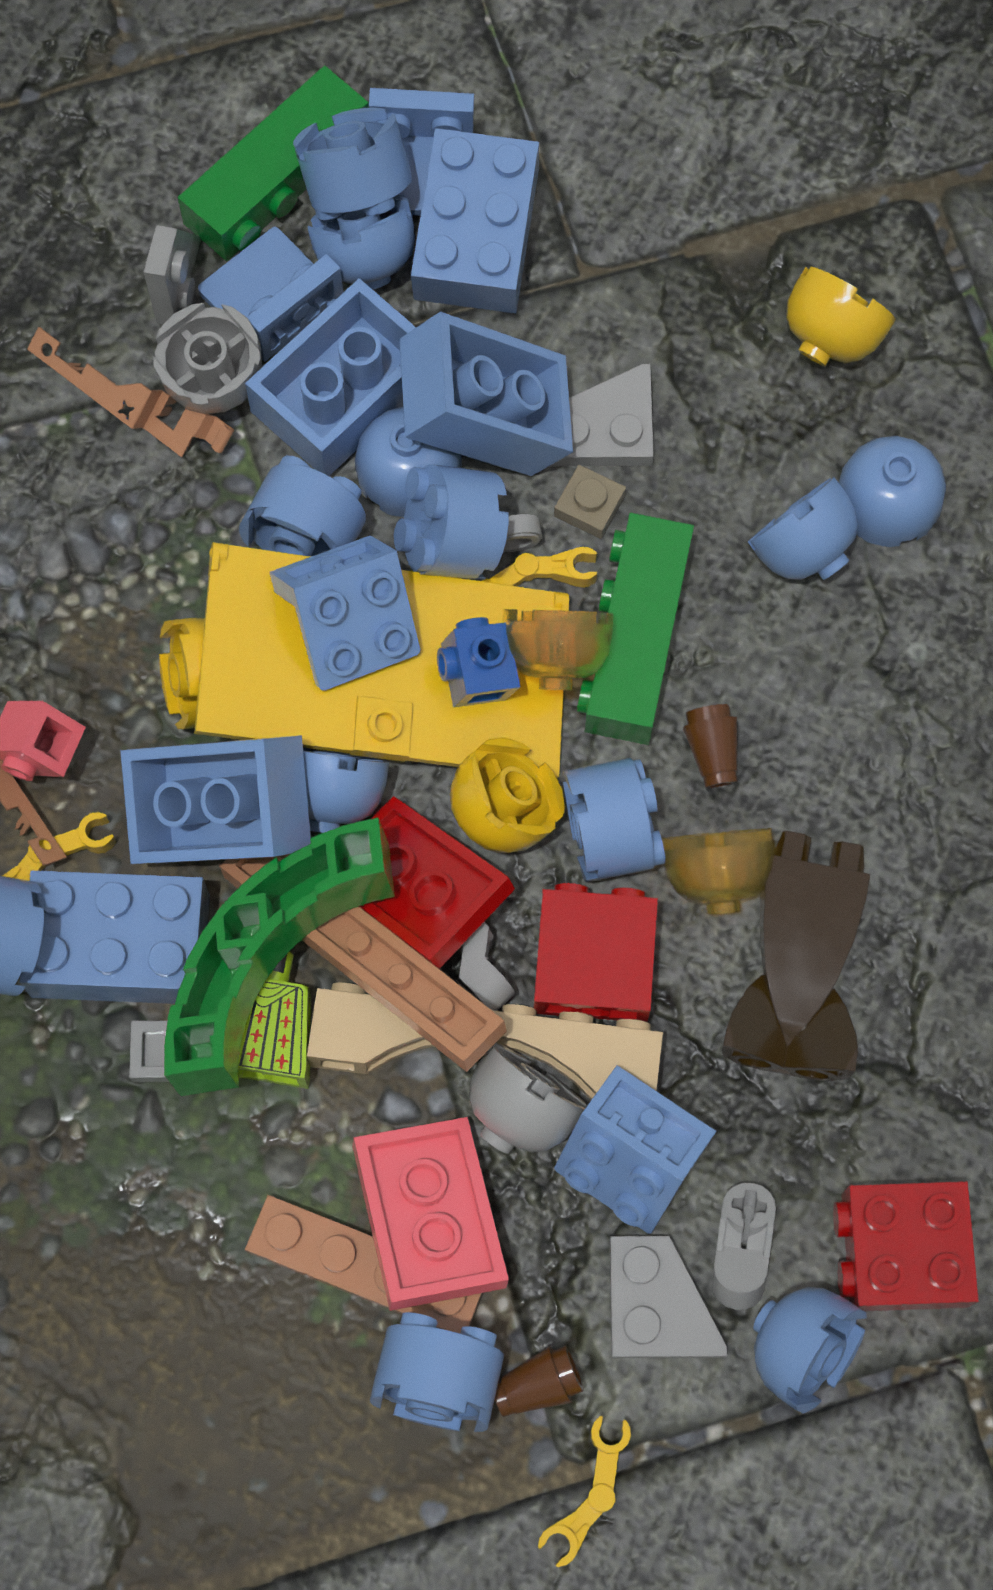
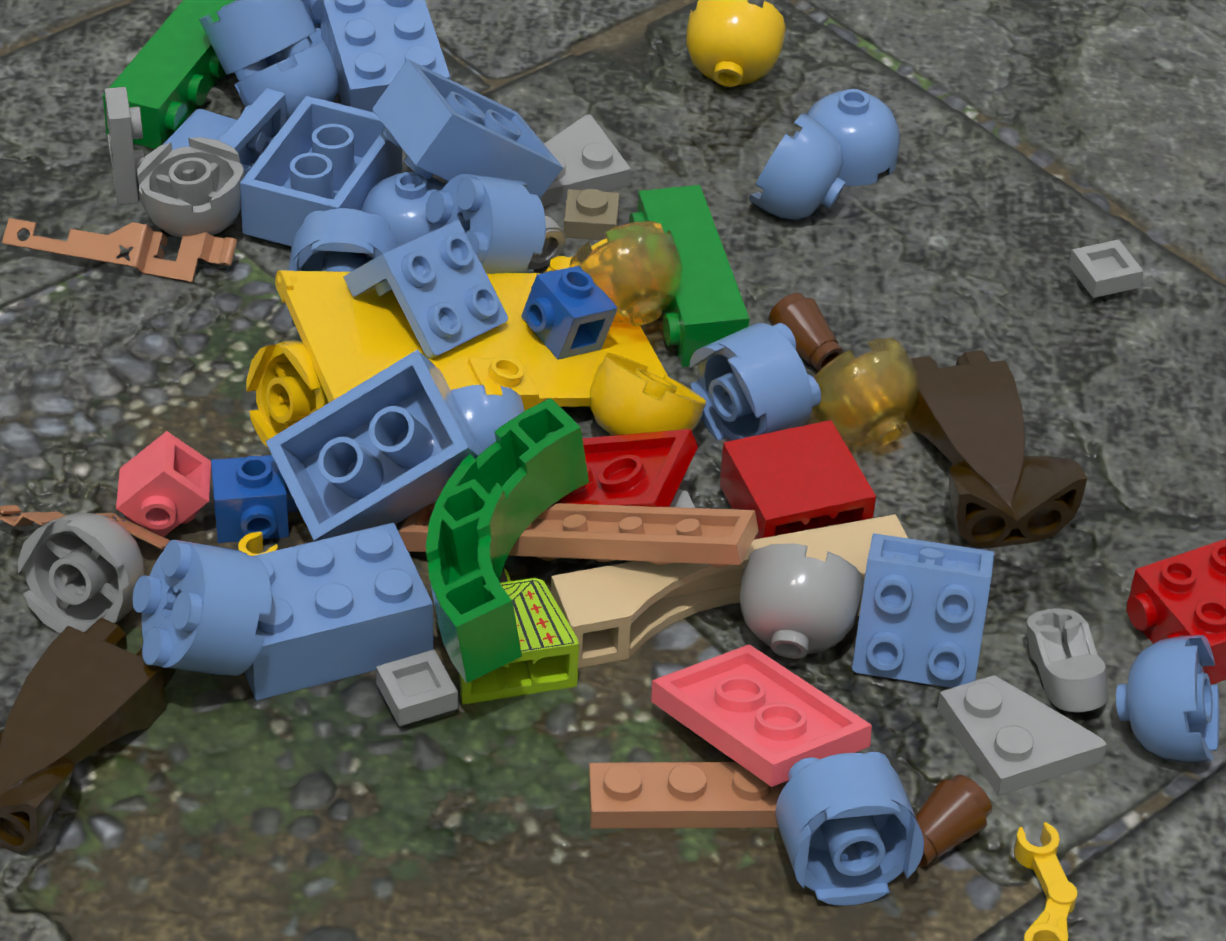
camera: 25 degrees left, 30 degrees down
(97, 773) = (250, 498): none -> blue brick

